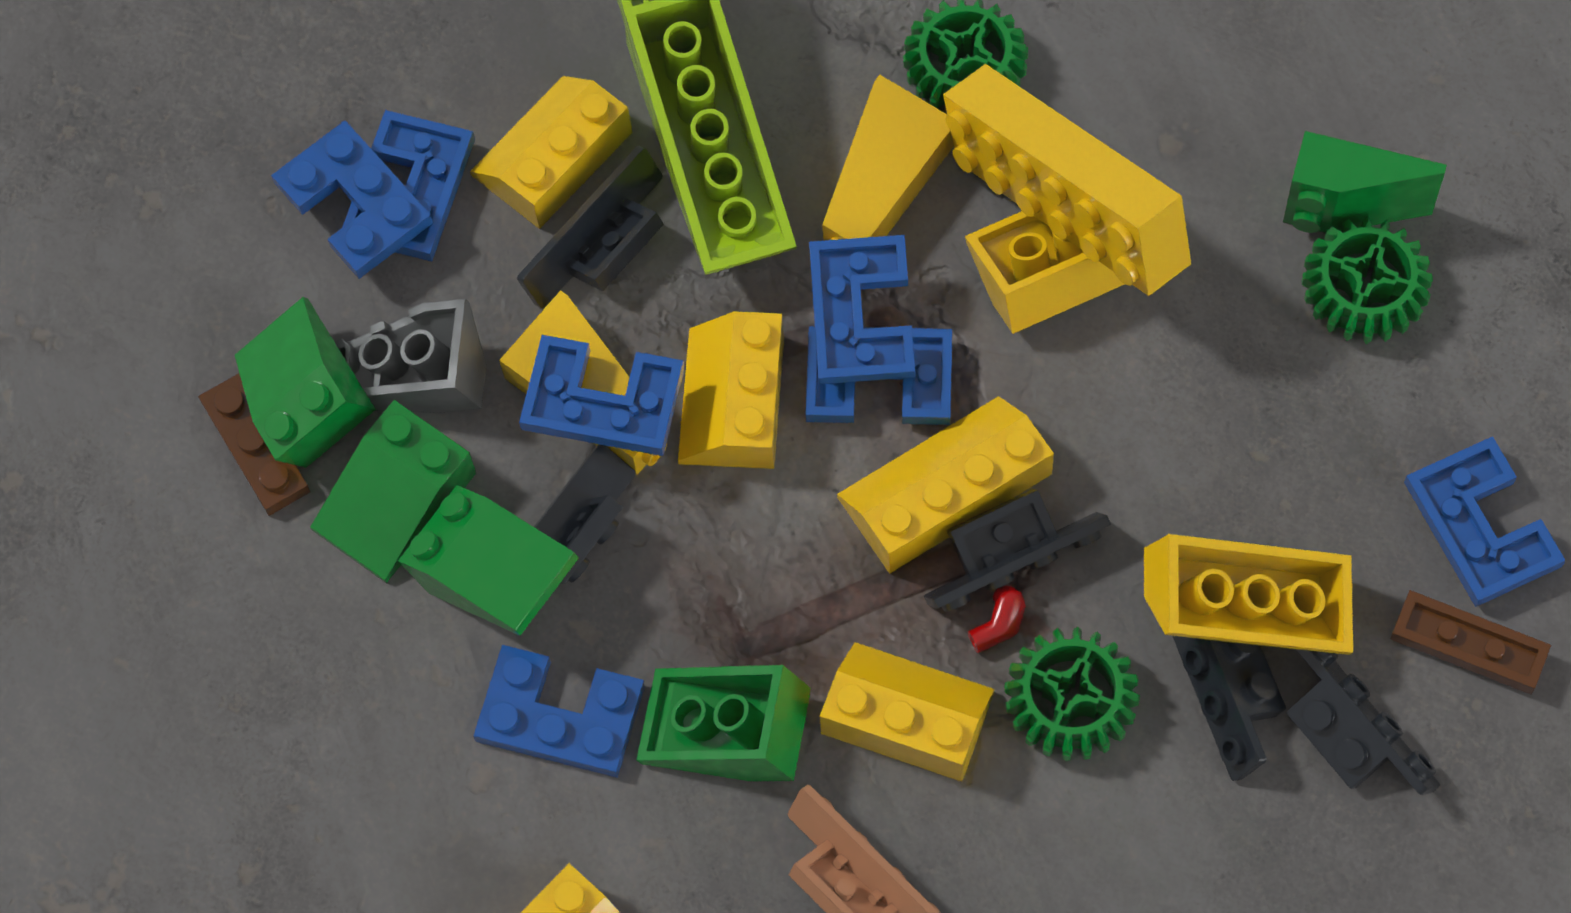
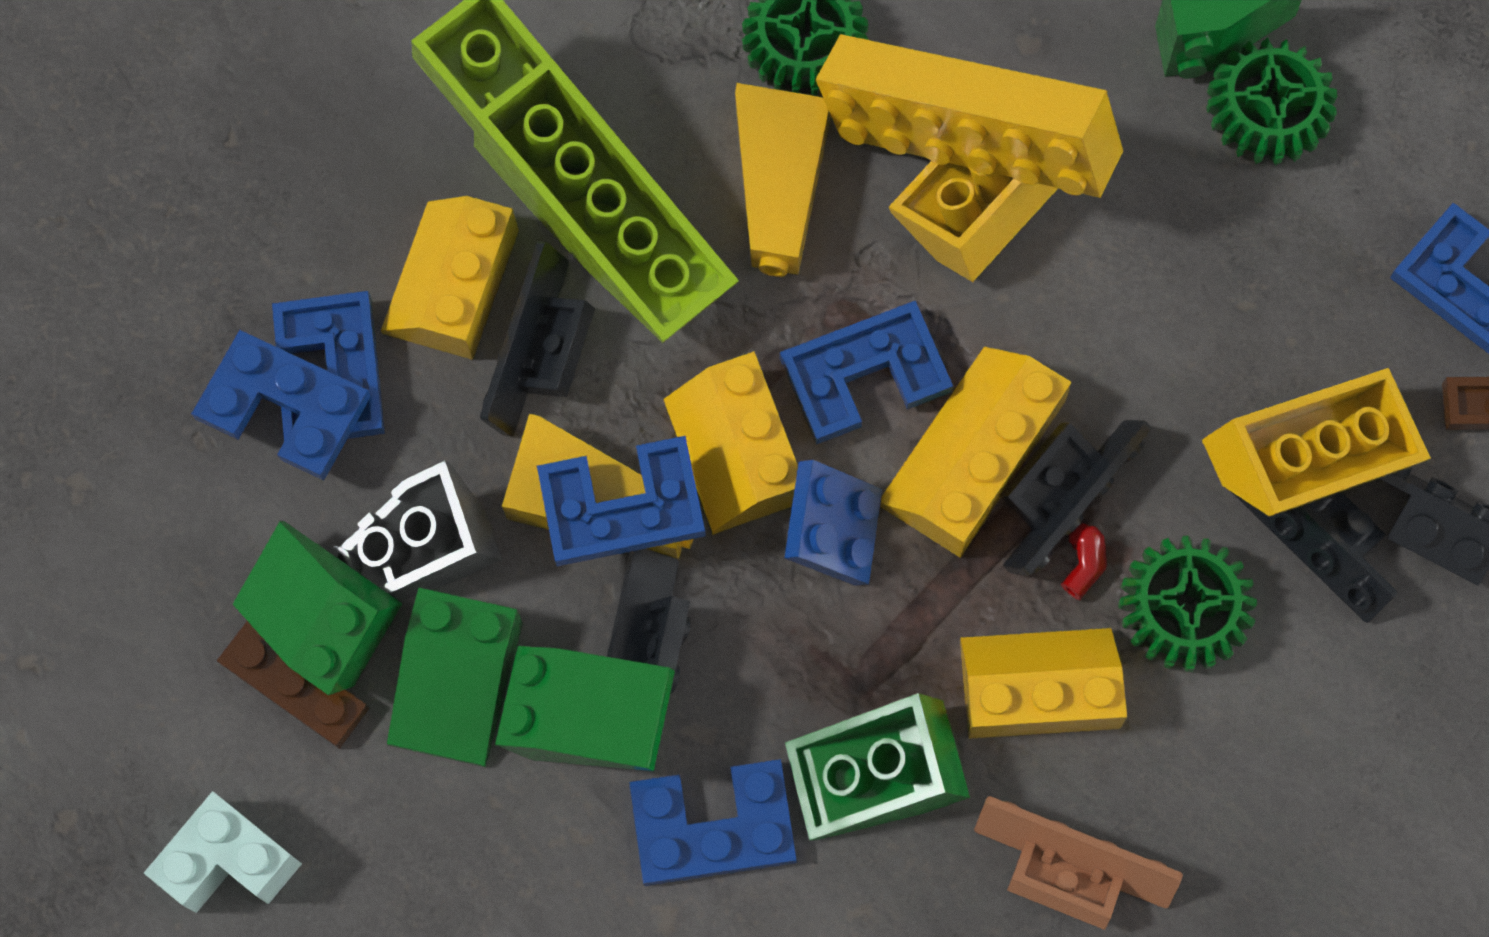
camera: 25 degrees left, 5 degrees up
(121, 552) = (217, 844): none -> light aqua brick
(783, 492) = (833, 523): none -> blue plate
(842, 344) = (824, 358): blue plate -> none

